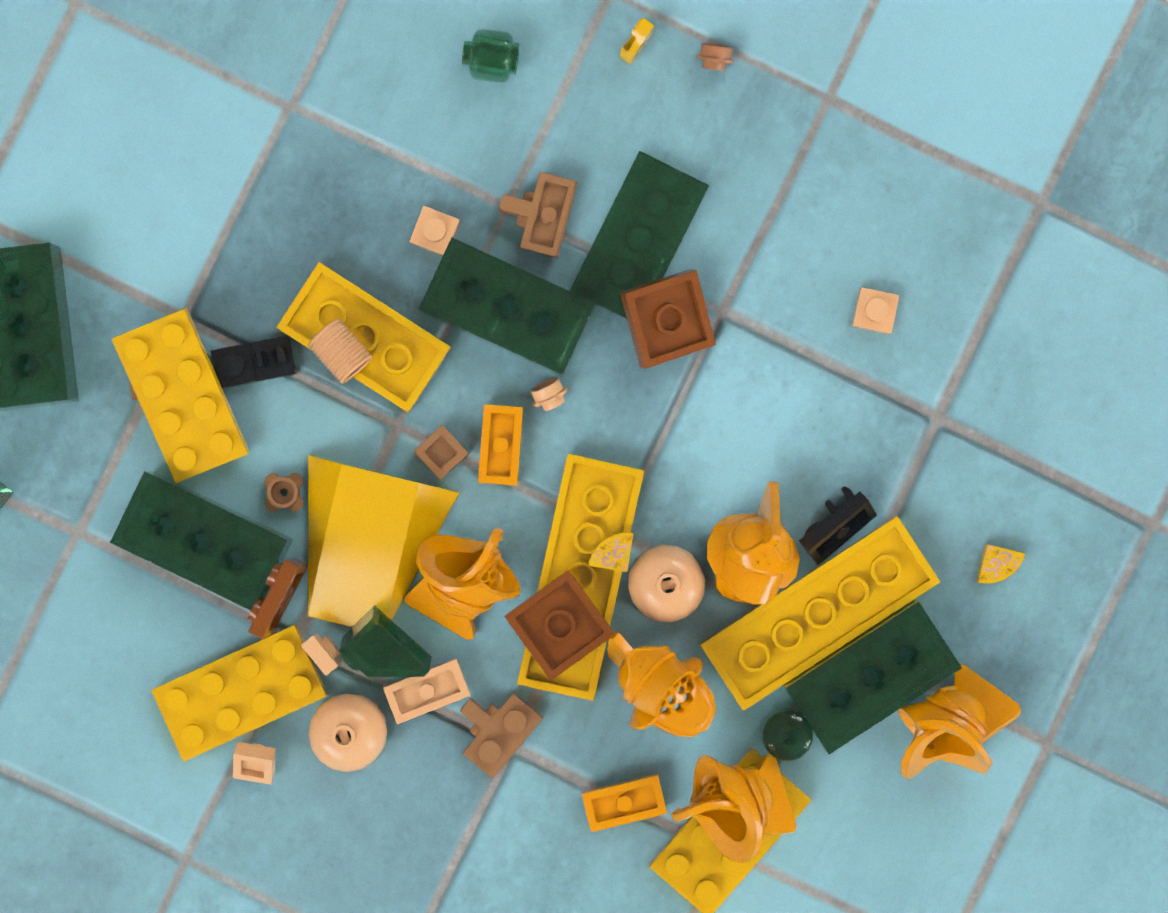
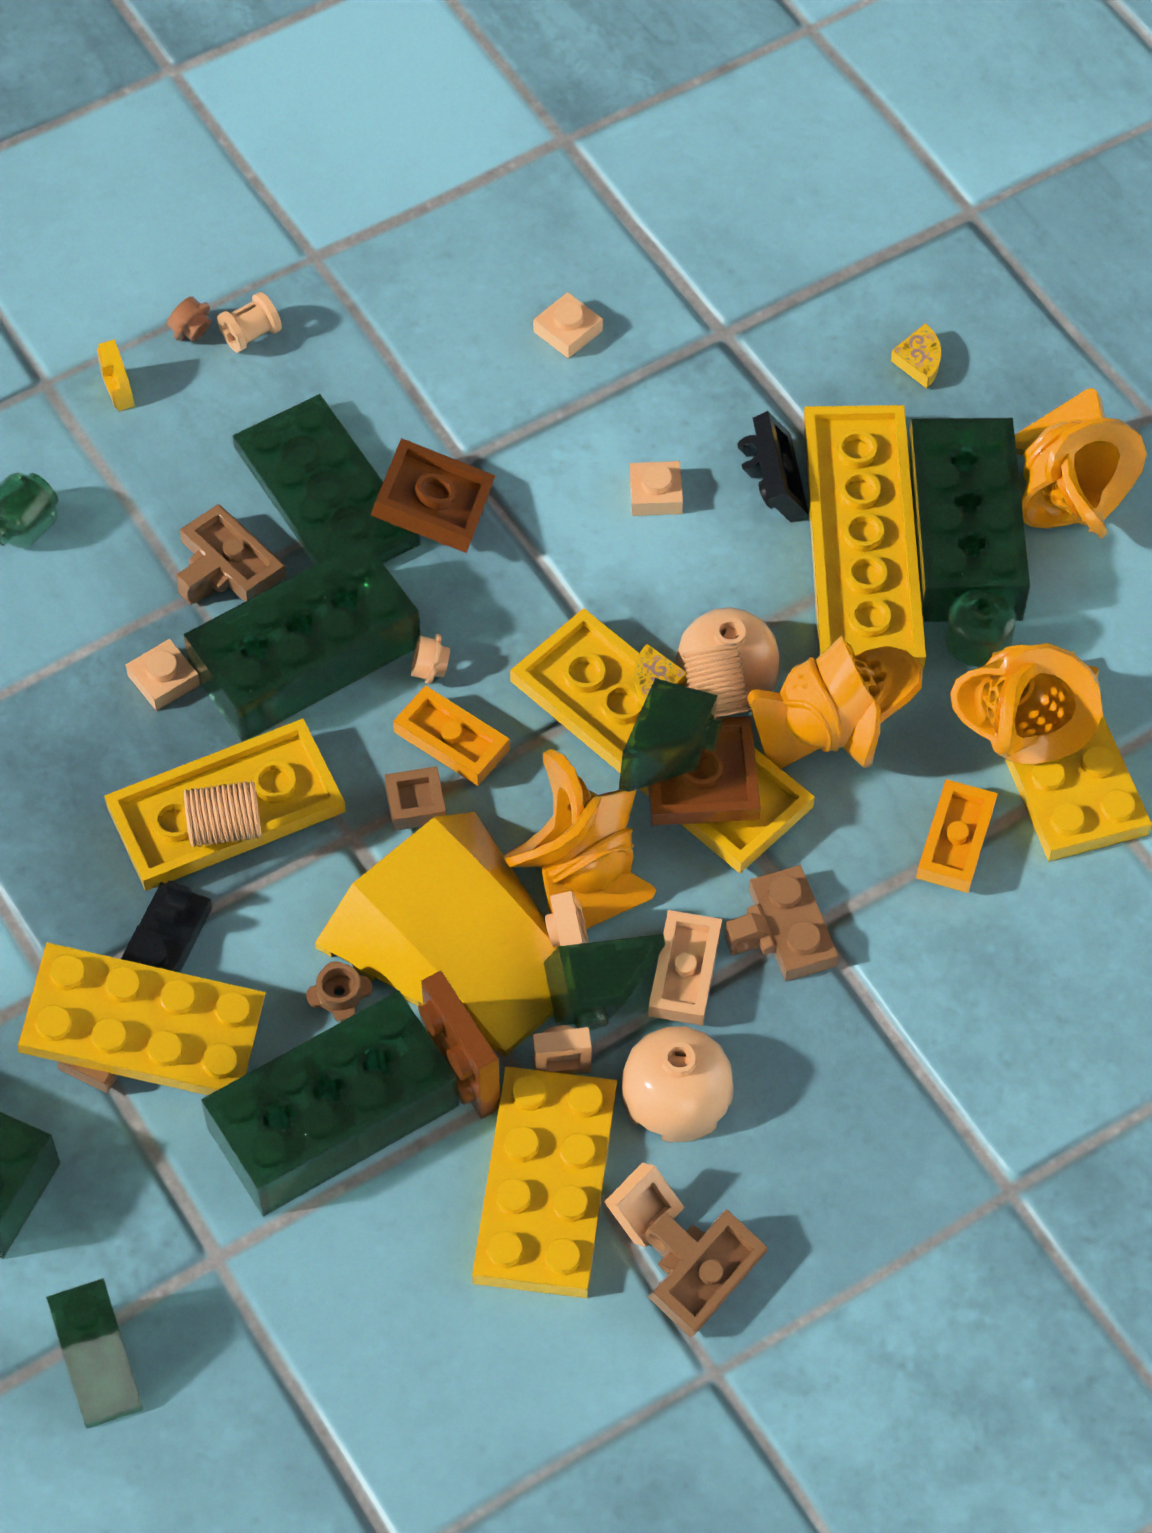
camera: 55 degrees left, 30 degrees down
(235, 819) = (700, 1266): none -> medium nougat hinge
(400, 610) = (567, 921): none -> light nougat plate
(555, 601) = (669, 735): none -> clear green slope
(623, 599) = (719, 673): none -> light nougat piece
(737, 98) = (249, 322): none -> light nougat bush
(753, 552) = (750, 537): light orange helmet -> none
(776, 453) = (656, 488): none -> light nougat plate

